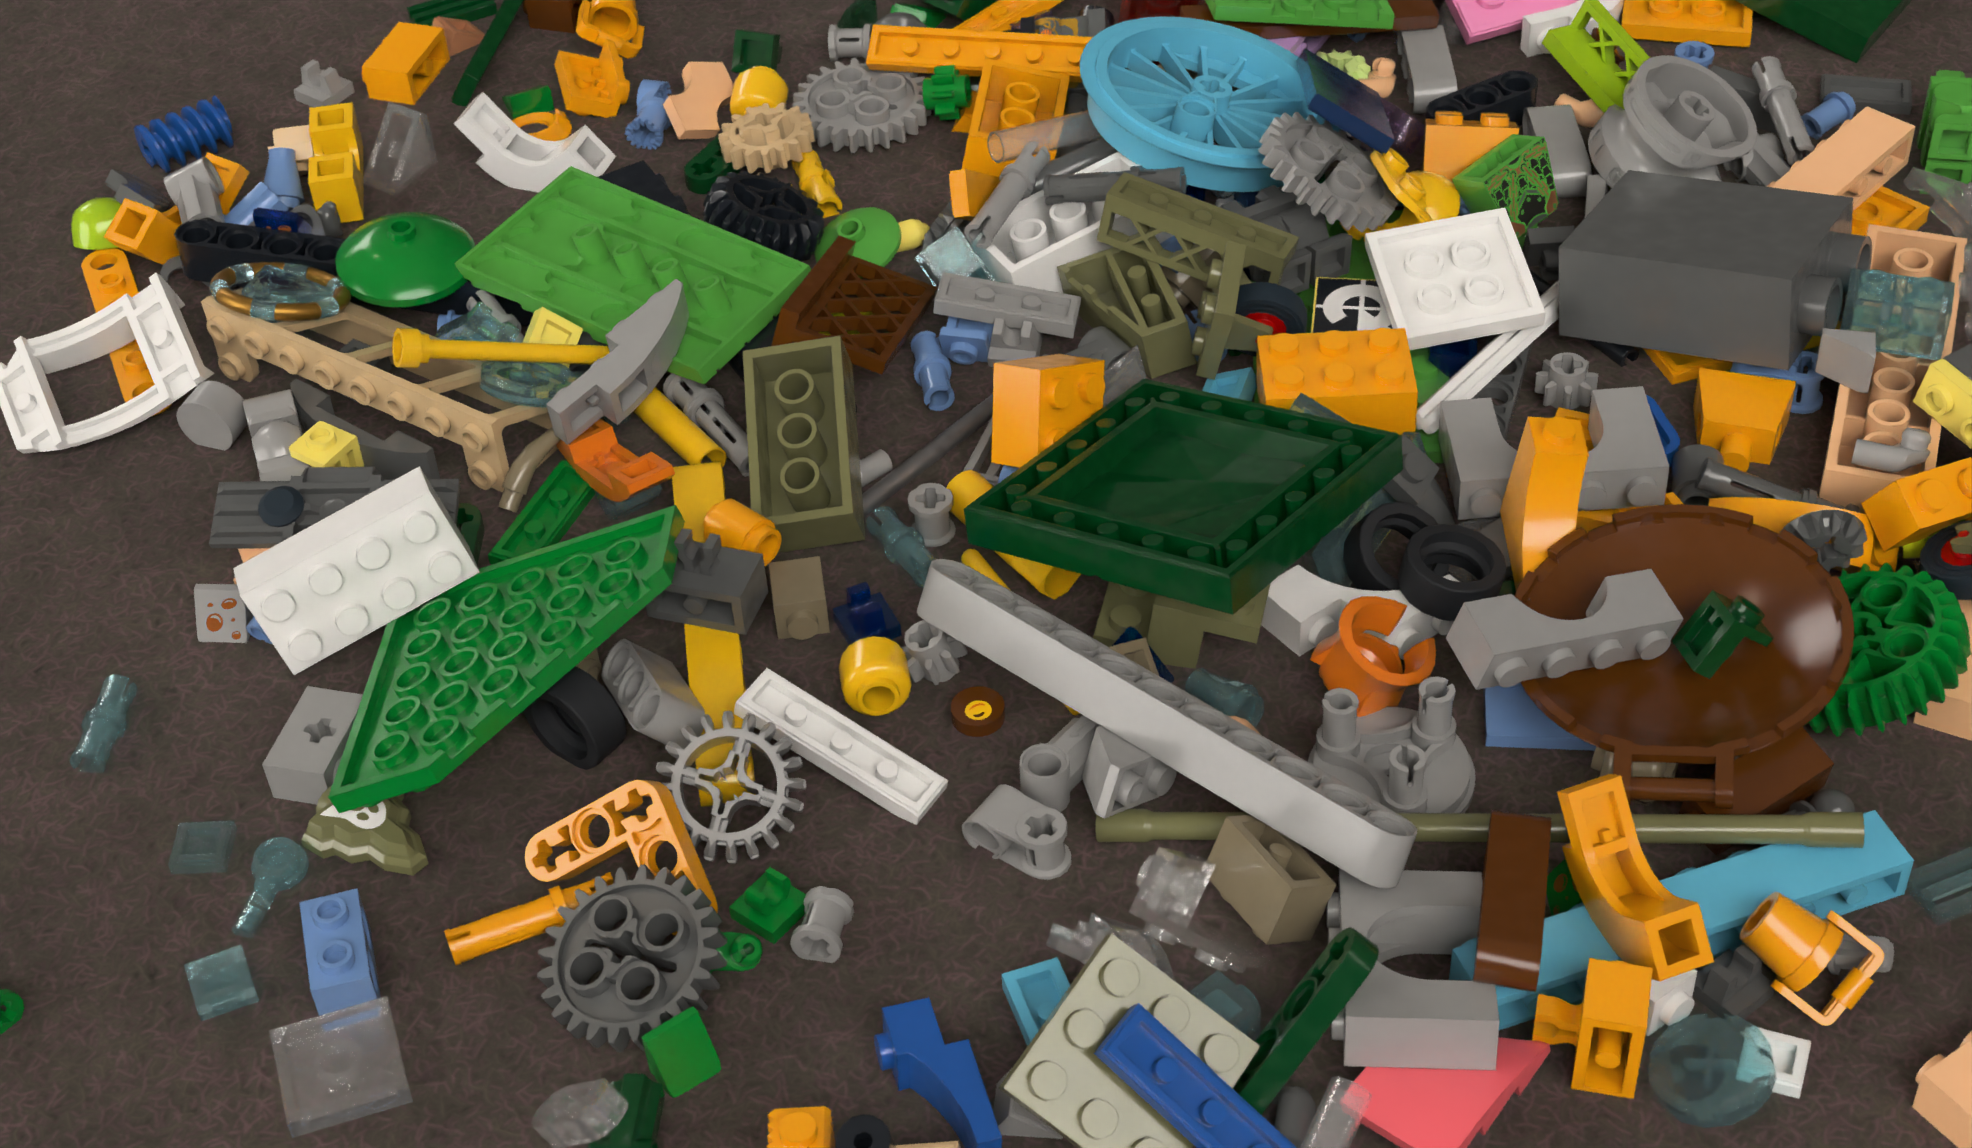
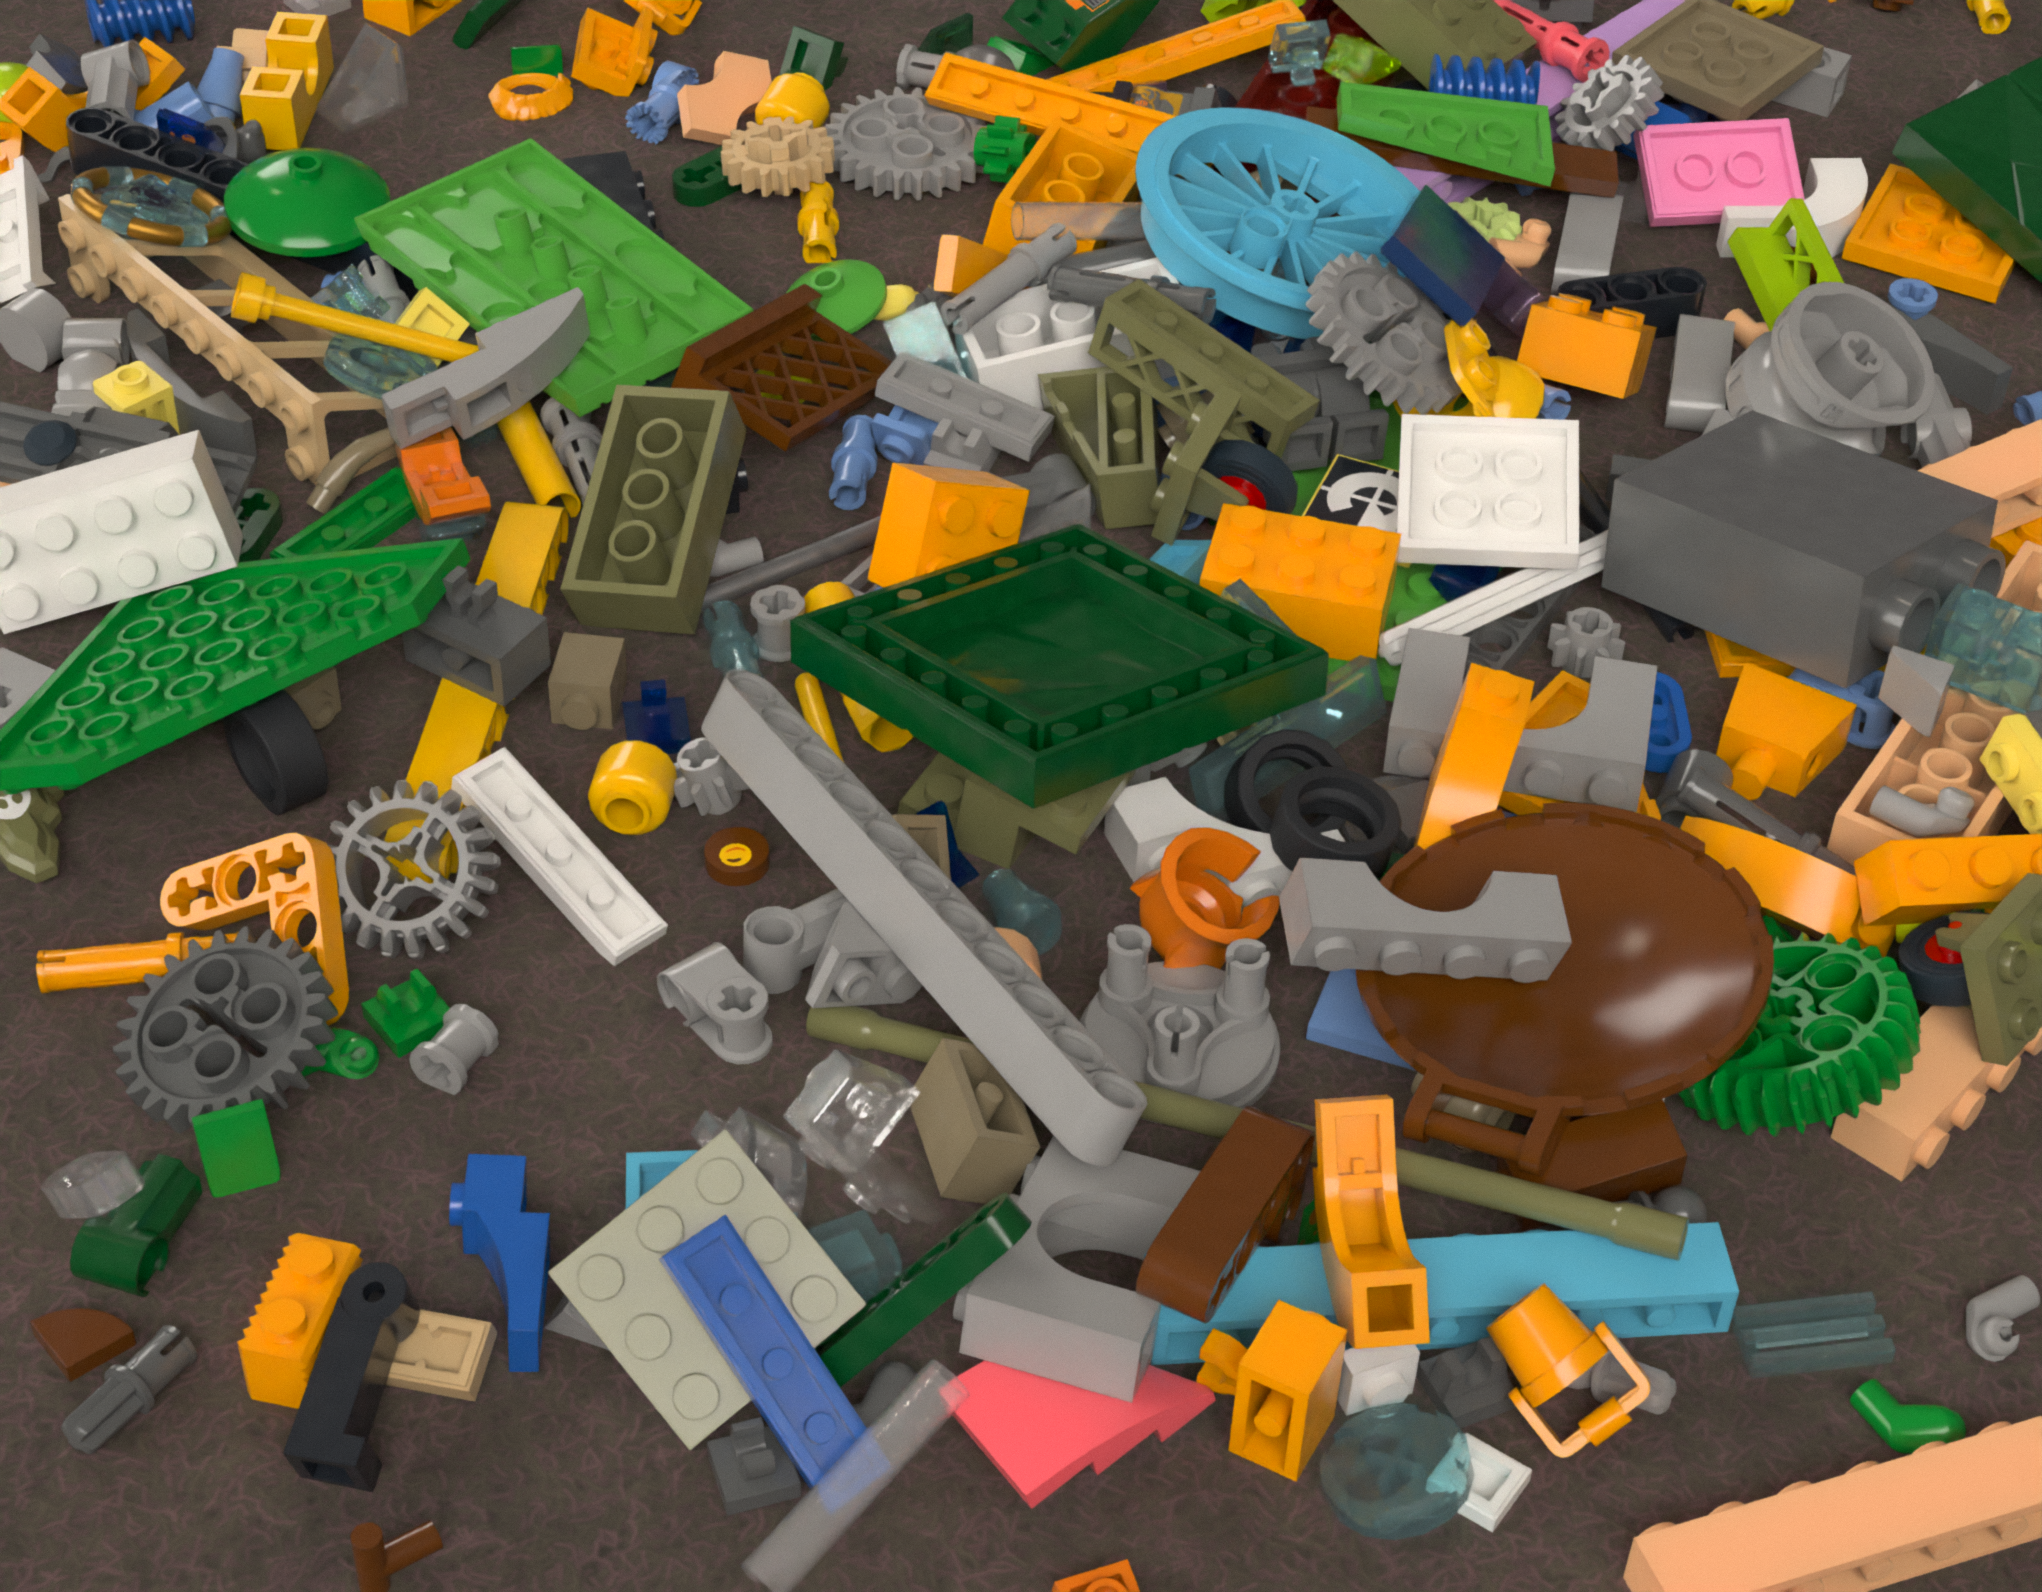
camera: 10 degrees right, 0 degrees up
(525, 160) = (495, 119): white arch -> none
(651, 693) = (370, 742): light grey beam -> none
(742, 529) = (541, 584): light orange brick -> none
(765, 213) = (735, 242): black gear -> none
(1418, 486) = (1348, 720): dark grey plate -> none
(1512, 177) = (1613, 397): bright green torso -> none
(1717, 630) = (1608, 964): dark green bracket -> none
(1779, 99) = (1986, 371): light grey pin -> none
(1843, 529) = (1812, 891): dark grey gear -> none

